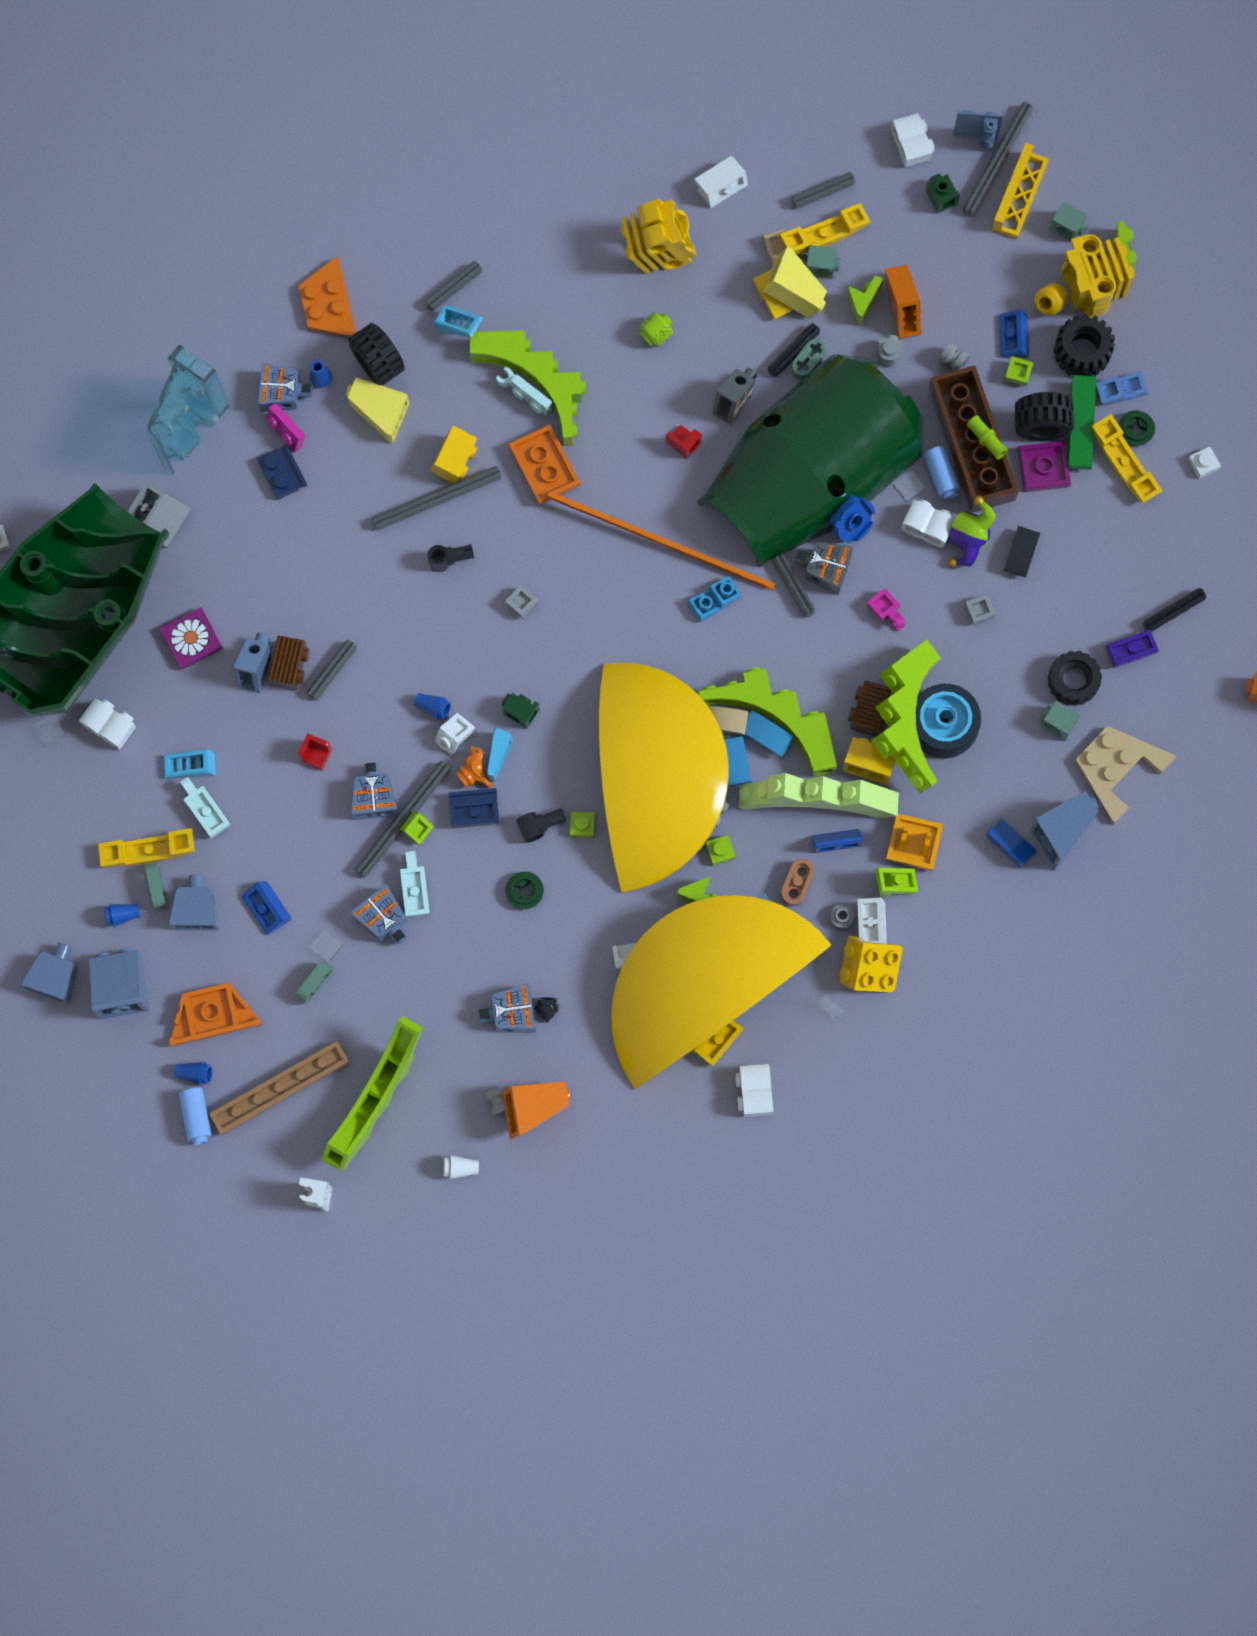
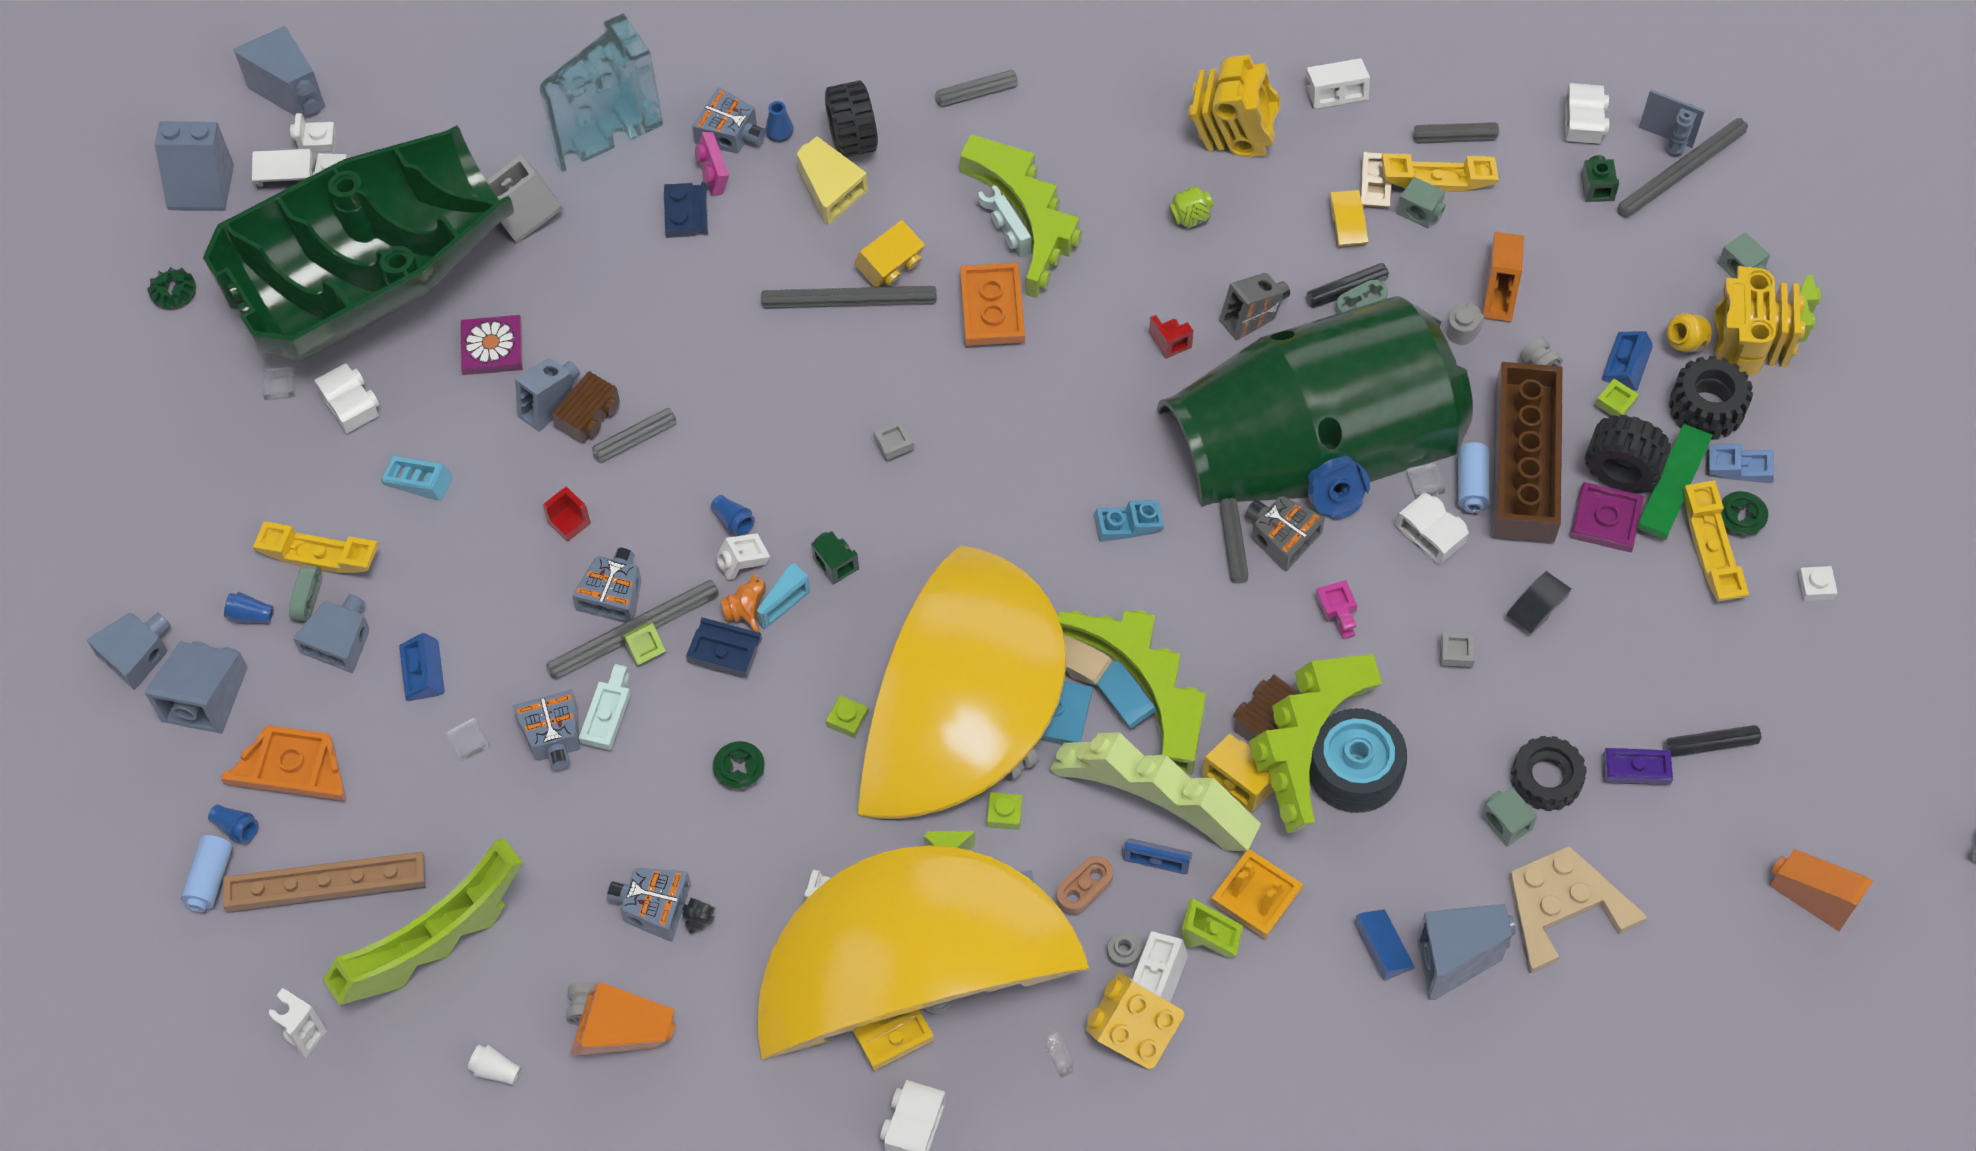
camera: 20 degrees right, 15 degrees down
(204, 809) = (407, 530): light aqua plate -> none
(314, 982) = (430, 773): sand green beam -> none
(327, 301) = (825, 54): orange wing -> none
(448, 313) = (960, 120): medium azure slope -> none
(451, 555) = (831, 361): black pin -> none
(534, 826) = (786, 694): black pin -> none
(660, 540) = (1095, 434): orange piece -> none
(795, 285) = (1378, 213): light yellow slope -> none
(863, 301) = (1455, 261): lime slope -> none
(971, 532) = (1481, 554): piece -> none
(987, 437) = (1544, 447): lime pin -> none
(1014, 186) = (1689, 201): yellow fence -> none

